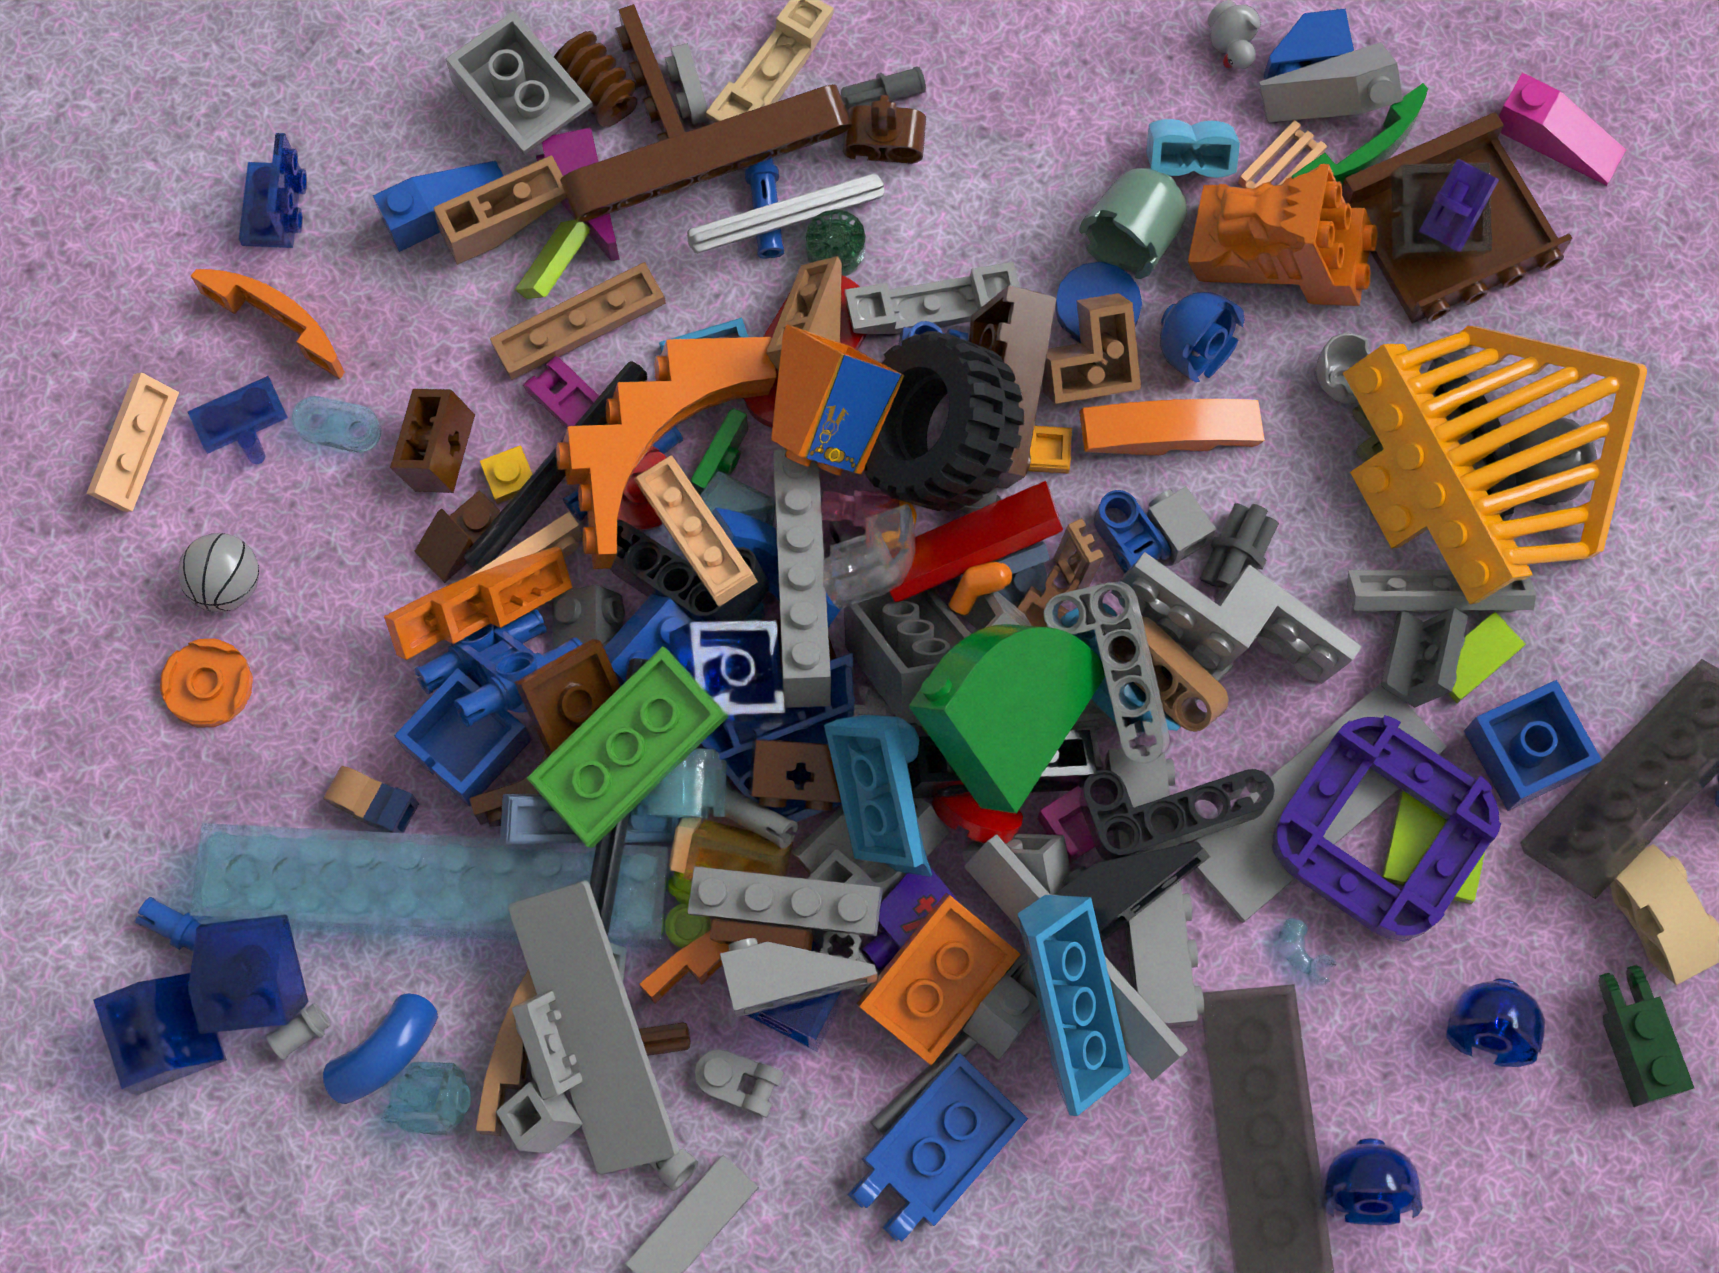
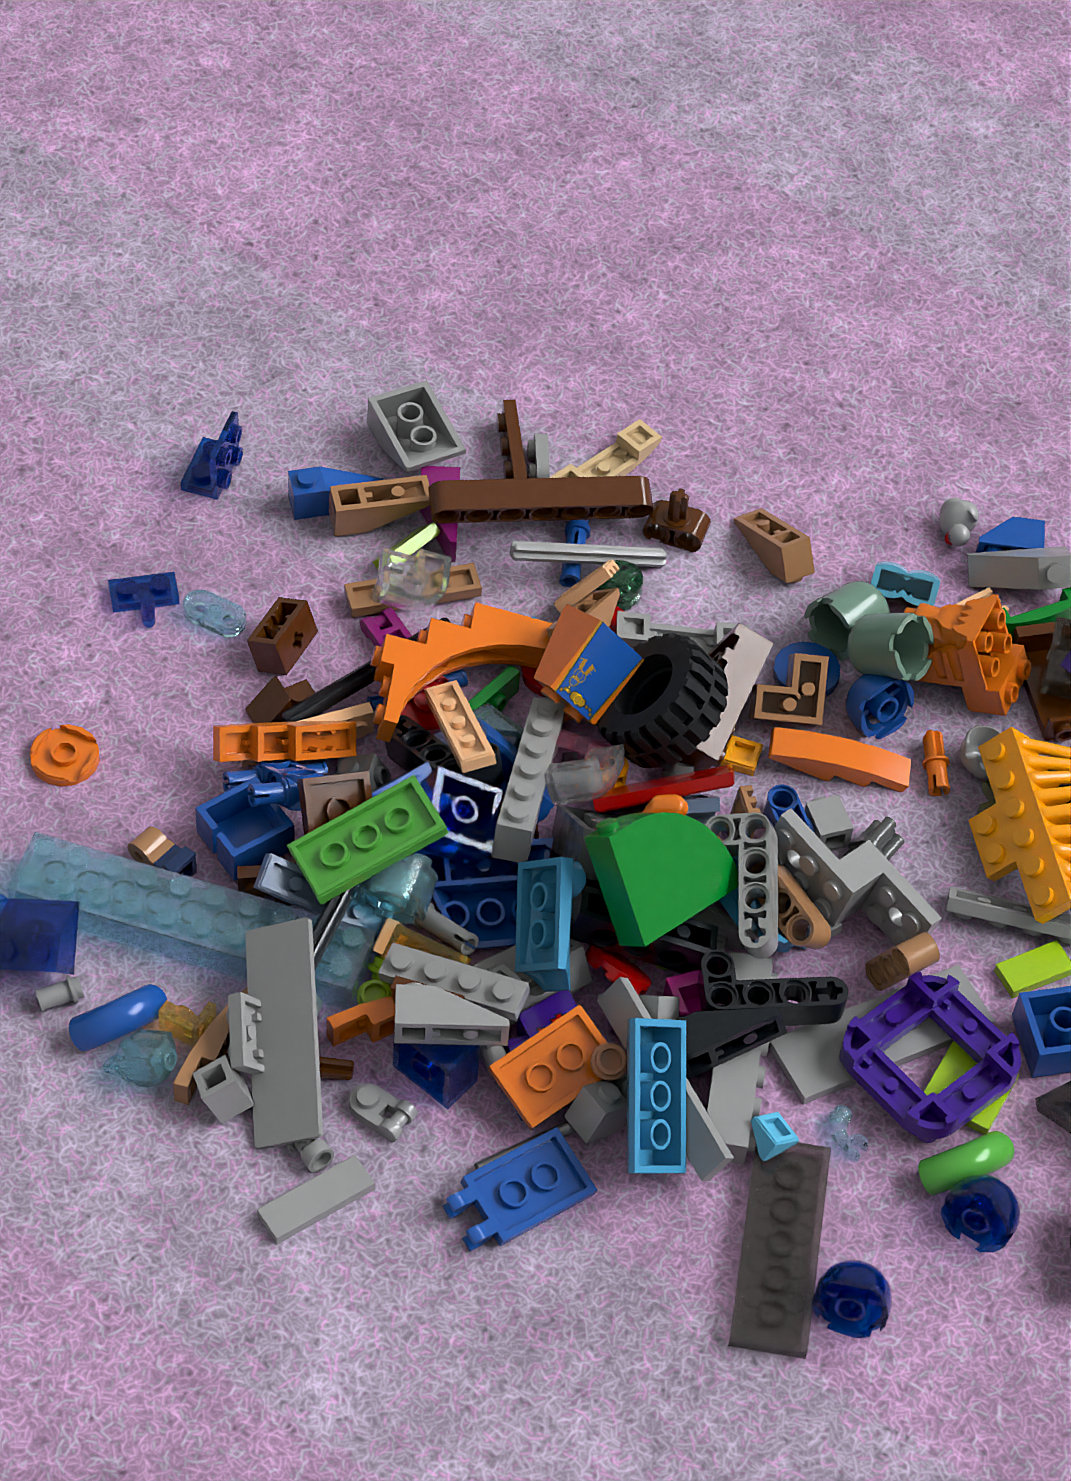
camera: 10 degrees right, 20 degrees down
(132, 442) = (62, 589): light nougat plate -> none
(218, 572) = (98, 681): light grey piece -> none
(234, 289) = (168, 511): orange slope -> none
(462, 1032) = (184, 1023): none -> clear yellow bracket
(506, 473) = (328, 671): yellow plate -> none
(574, 320) = (411, 580): none -> clear brick
(598, 78) = (481, 447): reddish brown piece -> none
(775, 757) = (472, 896): reddish brown brick -> none
(797, 264) = (586, 585): none -> light nougat tile
(893, 85) = (697, 497): dark grey axle -> none
(1004, 960) = (609, 1061): none -> nougat plate
(1017, 128) = (778, 545): none -> medium nougat slope
(1205, 264) = (891, 645): none -> sand green cylinder
(1222, 990) = (772, 1135): none -> medium azure slope
(1289, 397) = (935, 763): none -> orange axle
(1324, 712) = (902, 961): none -> medium nougat beam
(1424, 656) = (990, 953): dark grey bracket -> none
(1462, 962) = (974, 1157): none -> bright green cylinder

